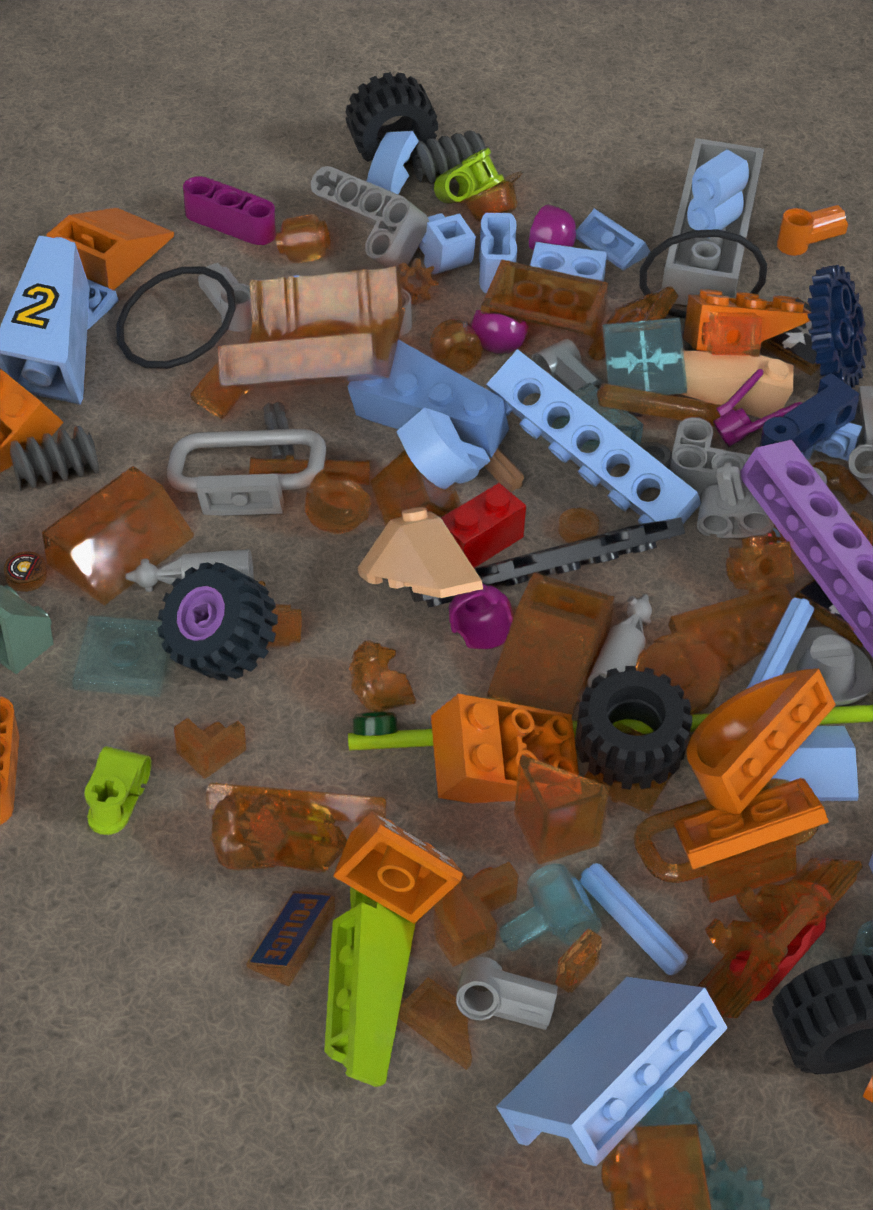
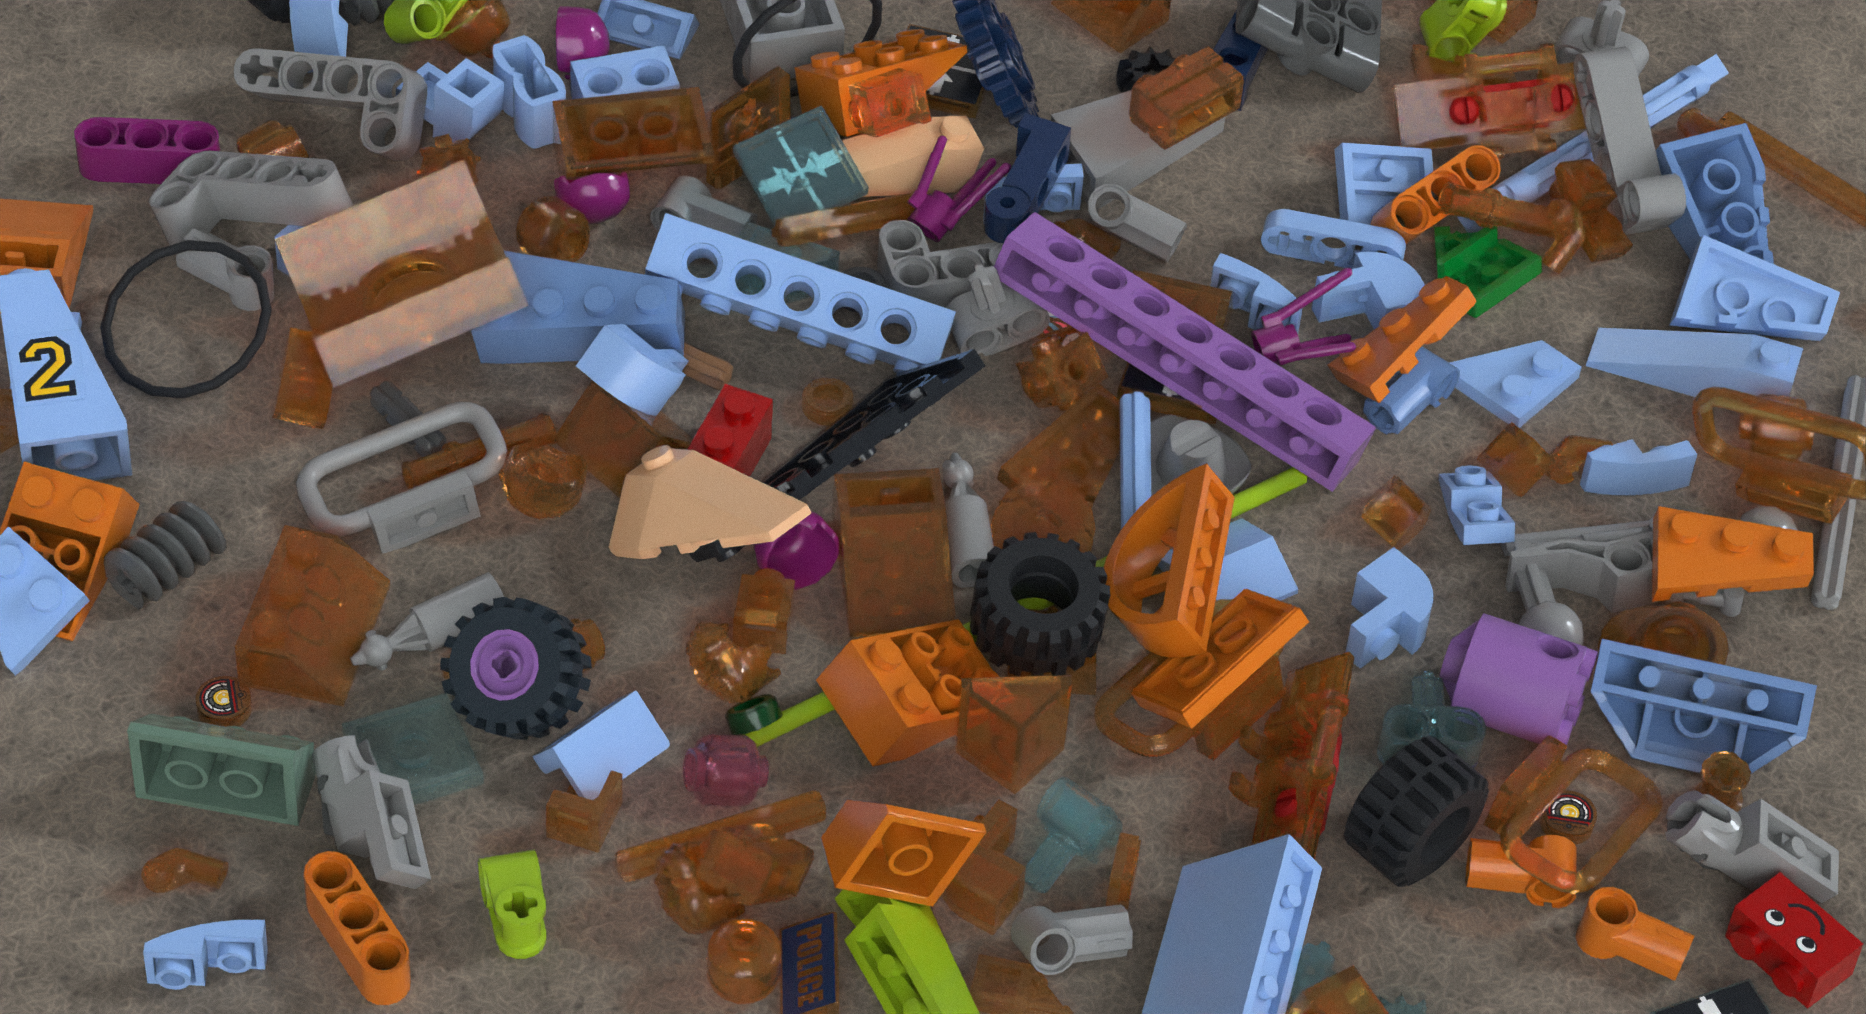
camera: 30 degrees left, 0 degrees up
(56, 684) = (370, 812): none -> light grey plate
(241, 903) = (743, 961): none -> clear orange head
(256, 703) = (614, 739): none -> light blue panel
(262, 248) = (246, 189): none -> light grey beam
(327, 755) = (725, 770): none -> clear pink head
(436, 647) = (764, 601): none -> clear orange brick
(634, 919) = (1153, 809): light blue axle -> none

